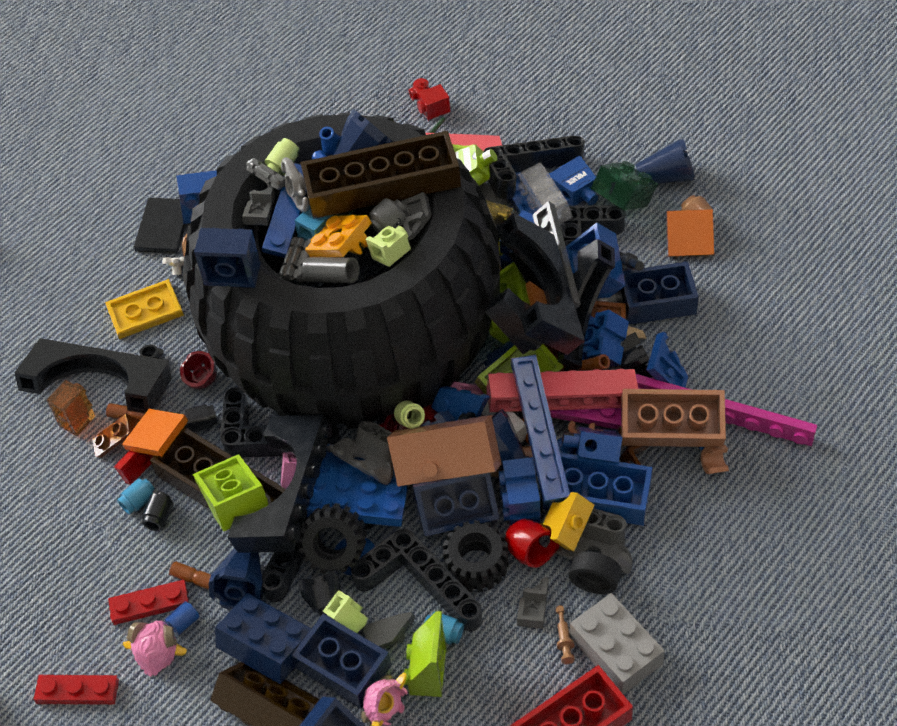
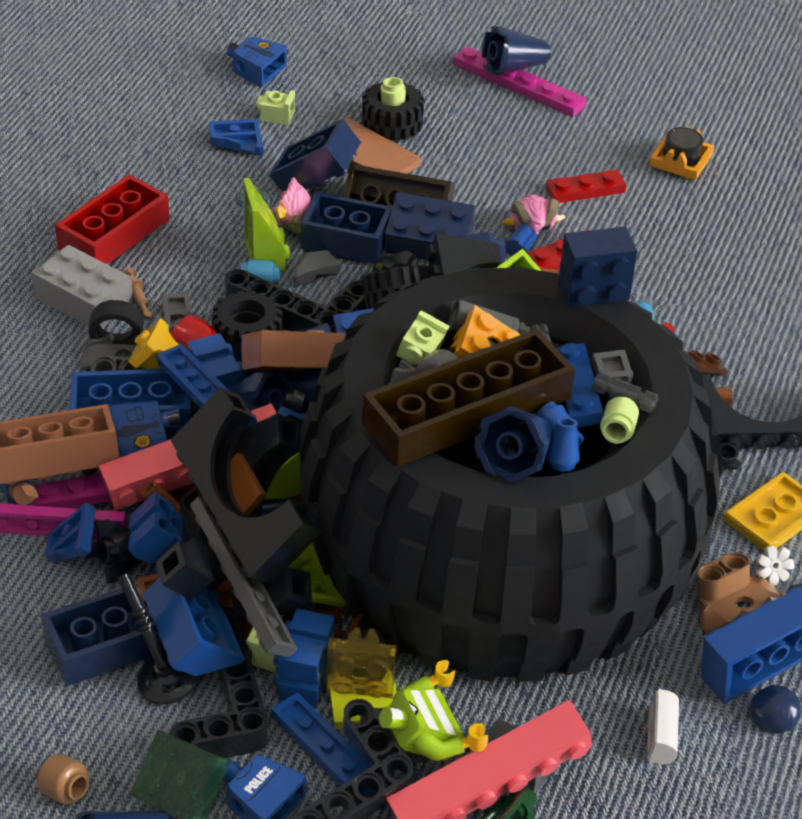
camera: 155 degrees right, 10 degrees down
(71, 407) = (765, 367): clear orange brick -> none
(295, 184) = (588, 380): light grey piece -> none
(346, 612) = (358, 257): yellowish green brick -> none
(540, 189) = (296, 724): clear brick -> none
(690, 233) = (67, 735): orange tile -> none

